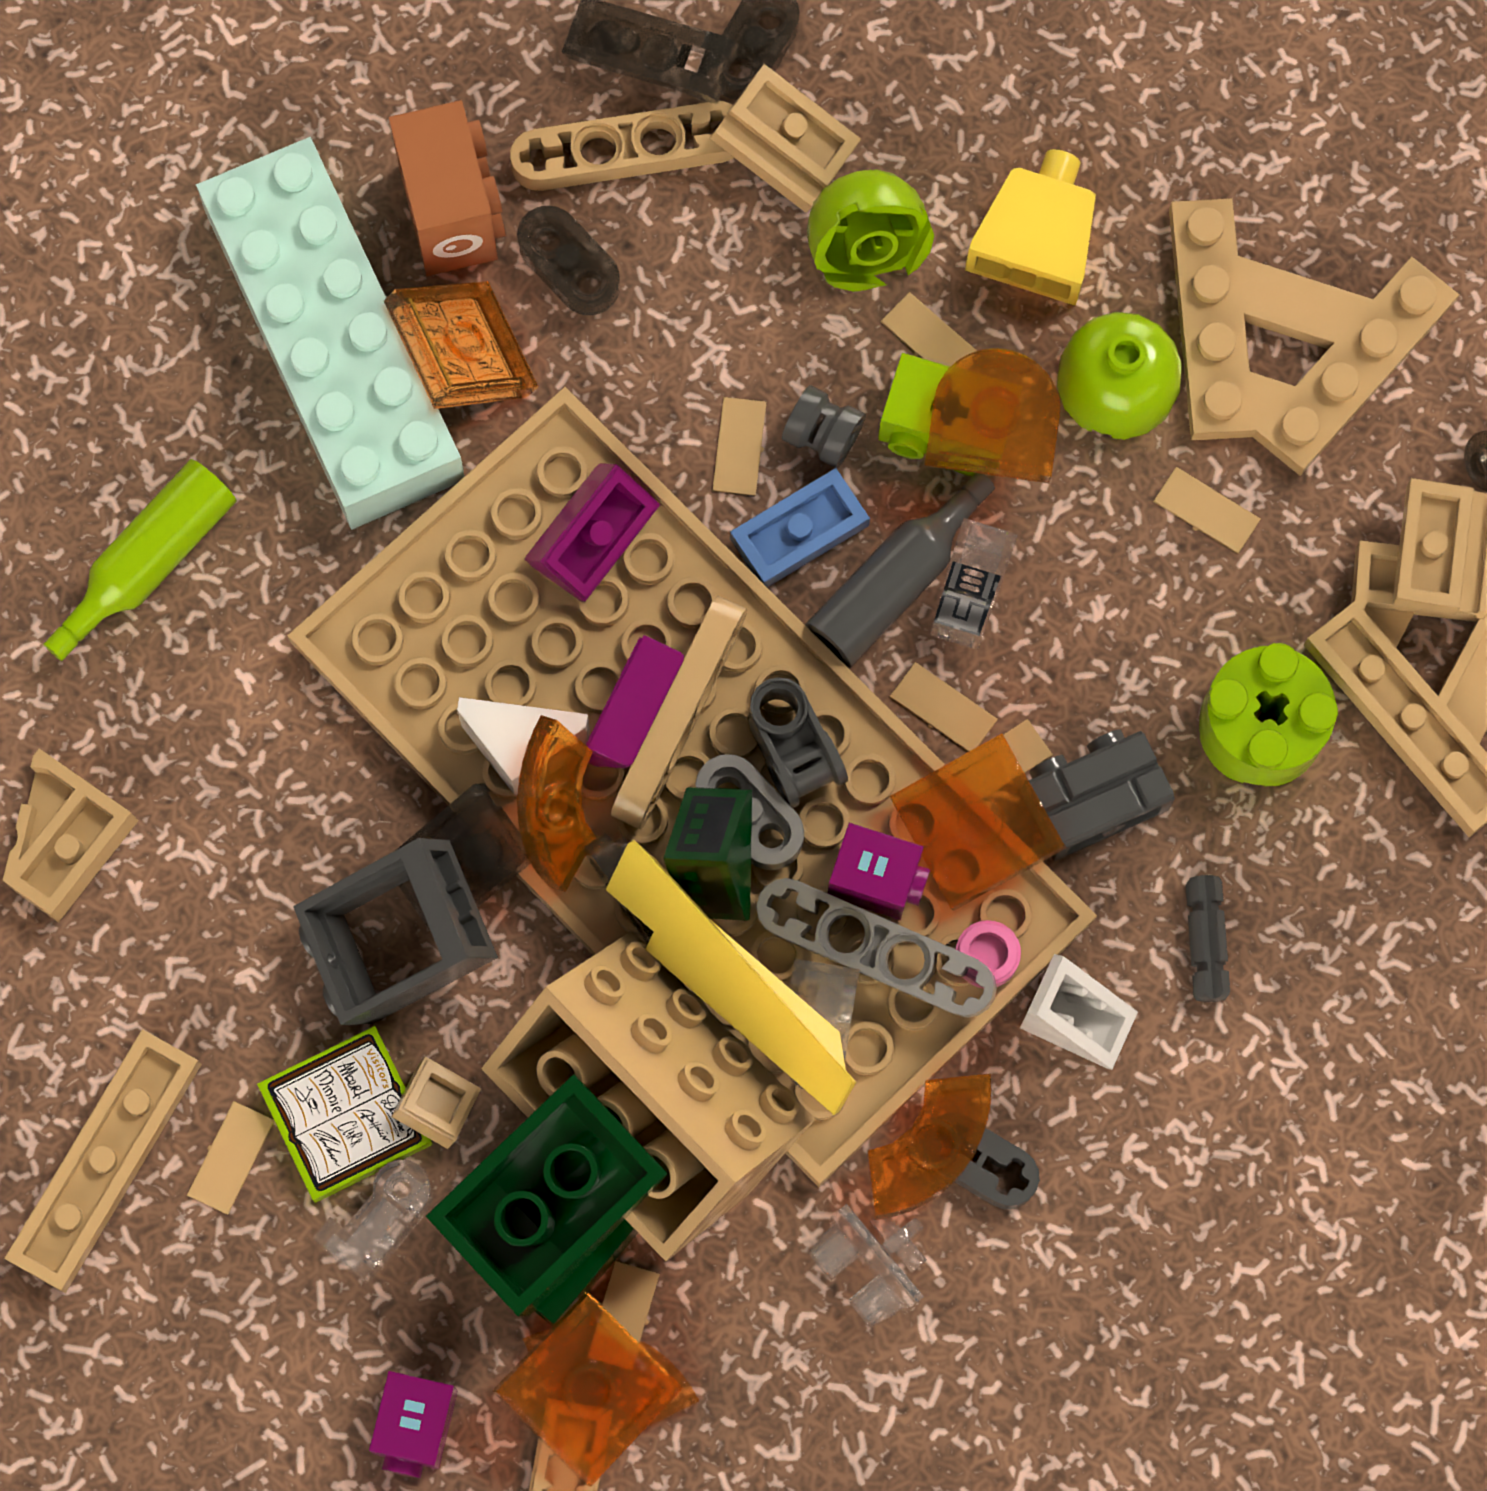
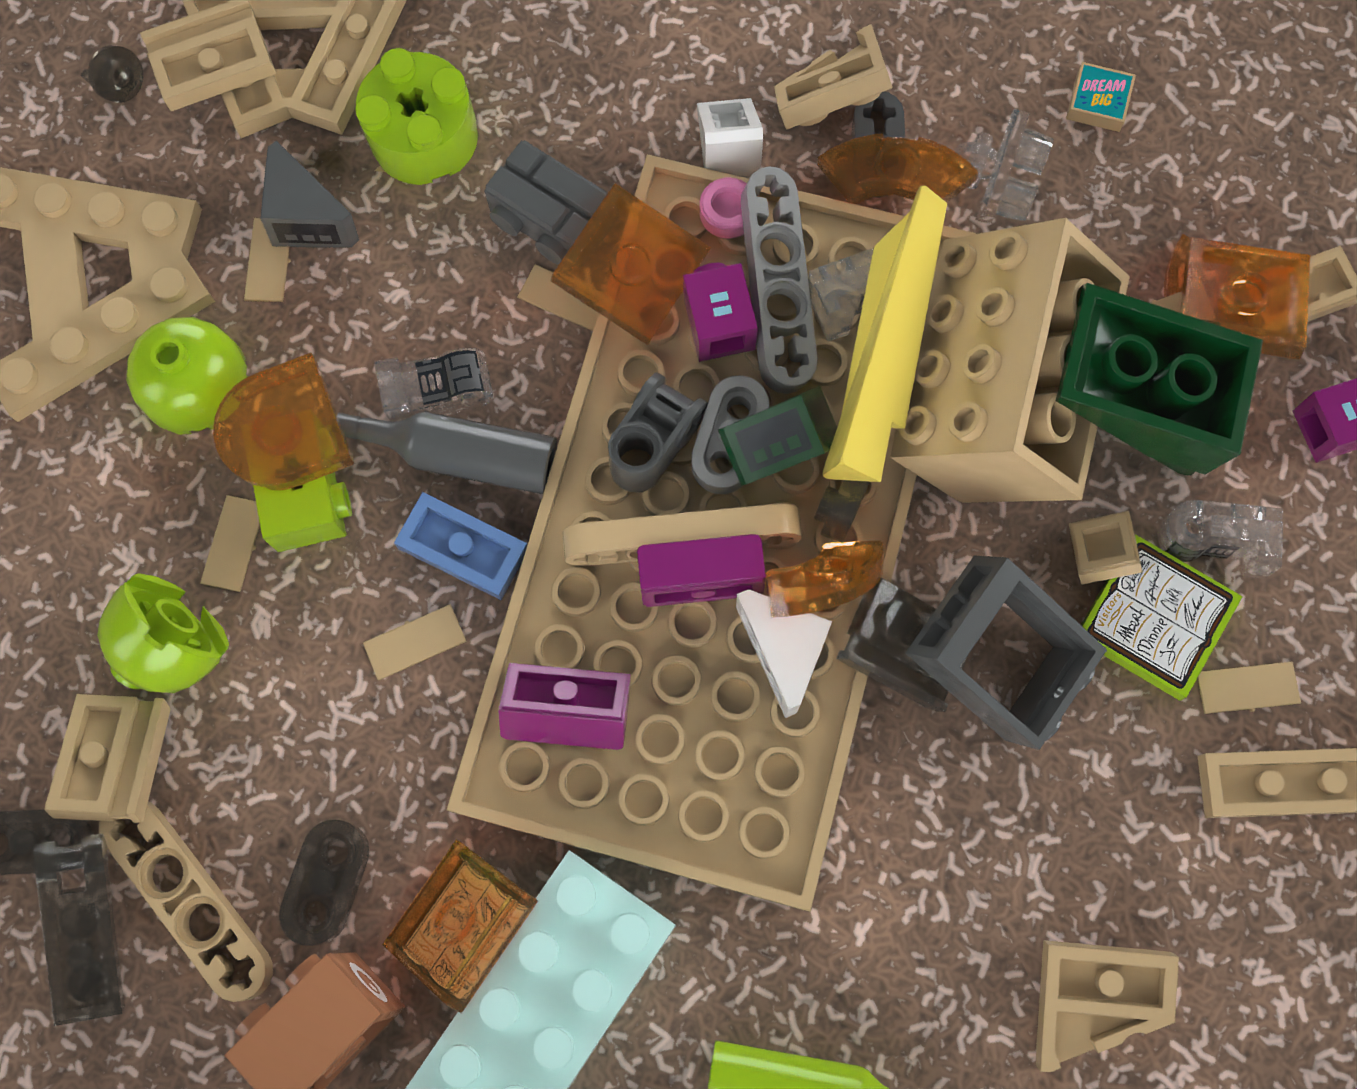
camera: 115 degrees left, 0 degrees up
(823, 426) = (361, 574): dark grey wheel -> none
(900, 1426) = (1100, 96): none -> tile
(943, 707) = (545, 362): tan window -> none
(1037, 230) = (89, 500): light yellow torso -> none
(1071, 1153) = (834, 83): none -> tan wing
(1207, 938) = (612, 82): dark grey axle -> none
(1238, 558) = (299, 209): none -> dark grey slope

